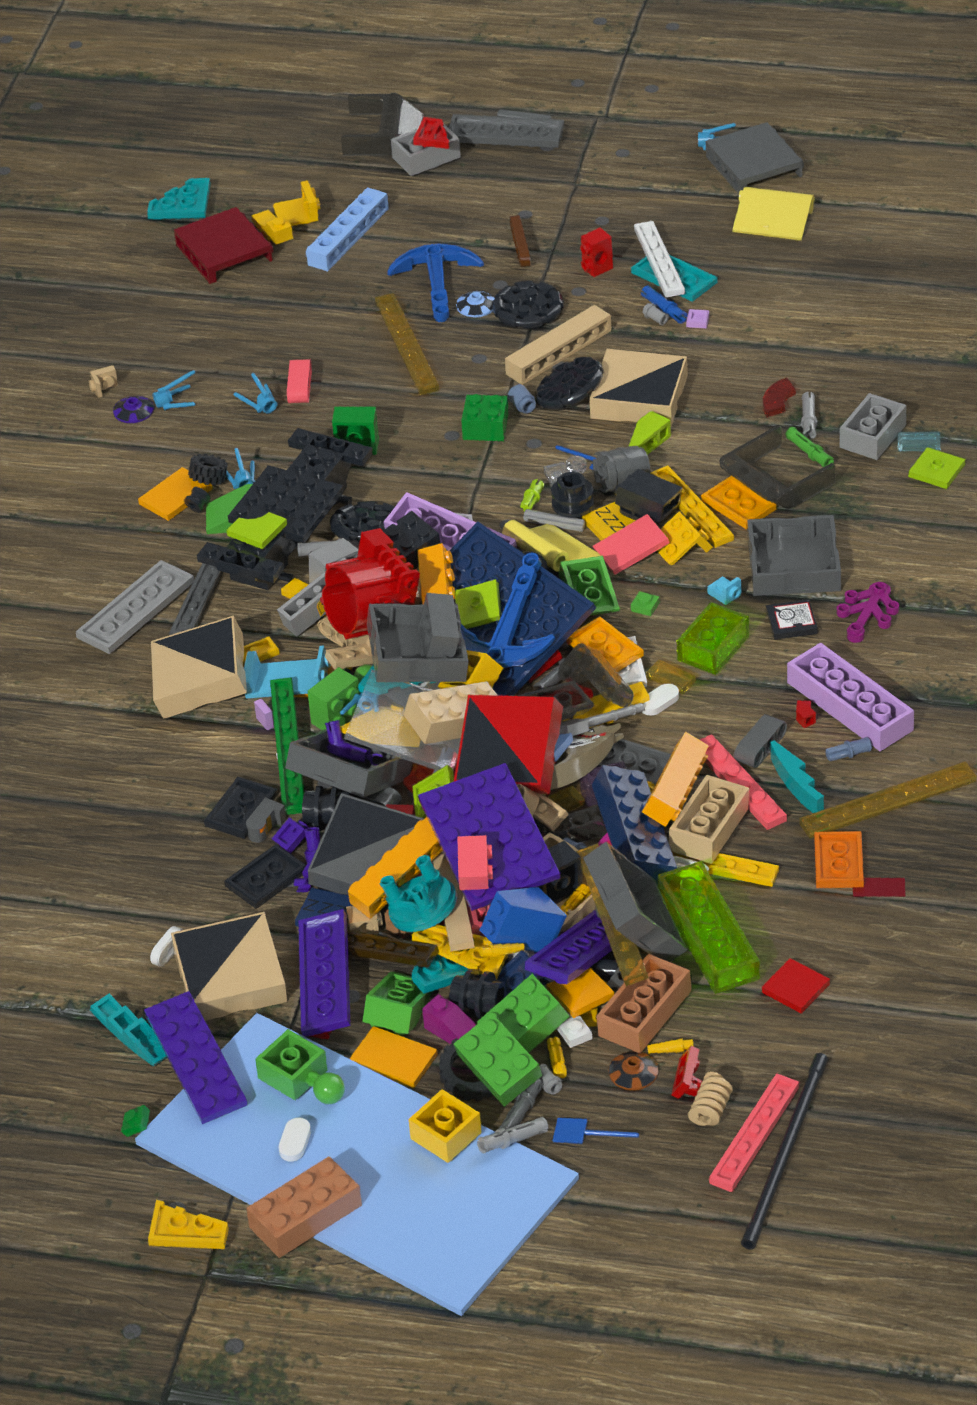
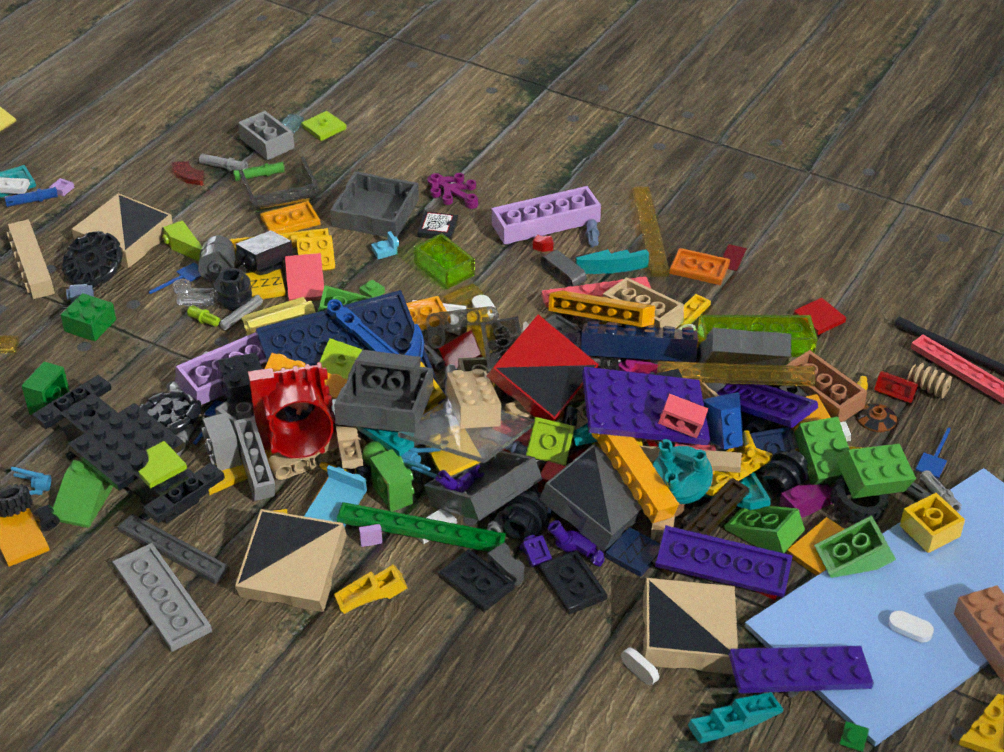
camera: 75 degrees left, 0 degrees up
(195, 736) = (370, 588): none -> yellow slope
(295, 1065) = (838, 602): bright green brick -> none
(384, 1075) = (855, 549): none -> bright green slope
(654, 313) = (39, 203): light grey pin -> none

